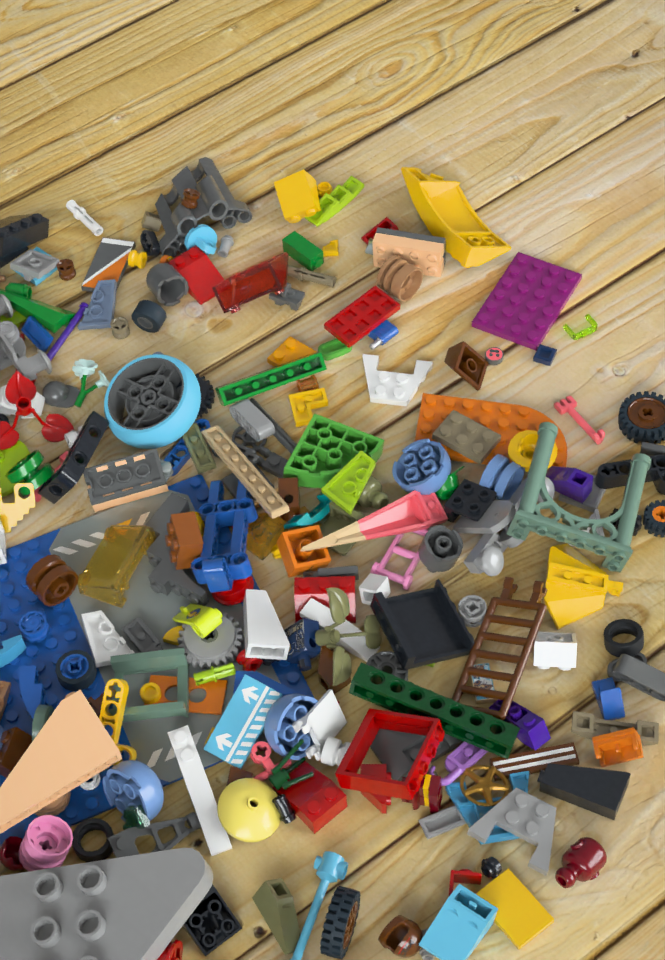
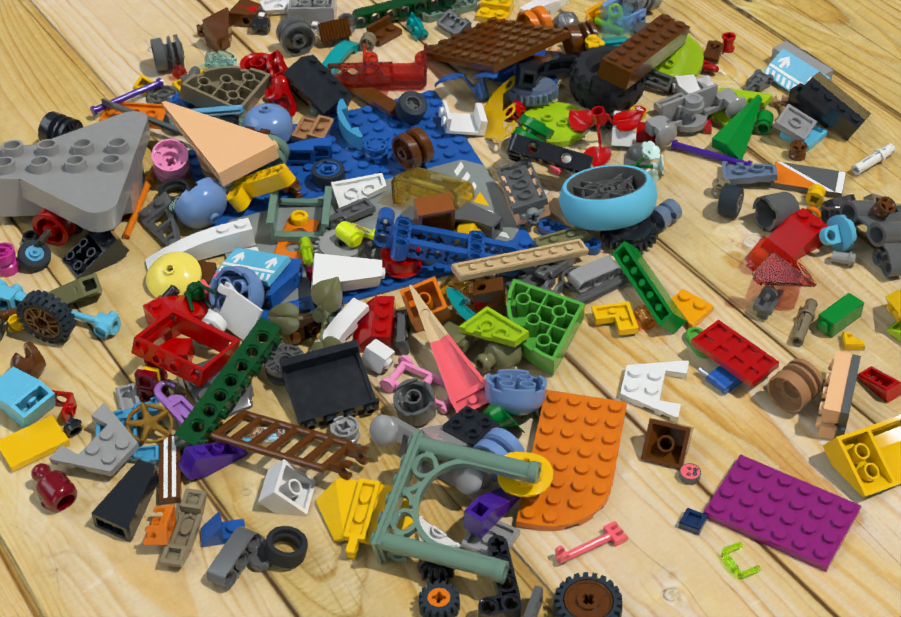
camera: 90 degrees right, 10 degrees down
(37, 334) = (707, 135): blue tile -> none
(466, 437) = (557, 430): dark tan plate -> none

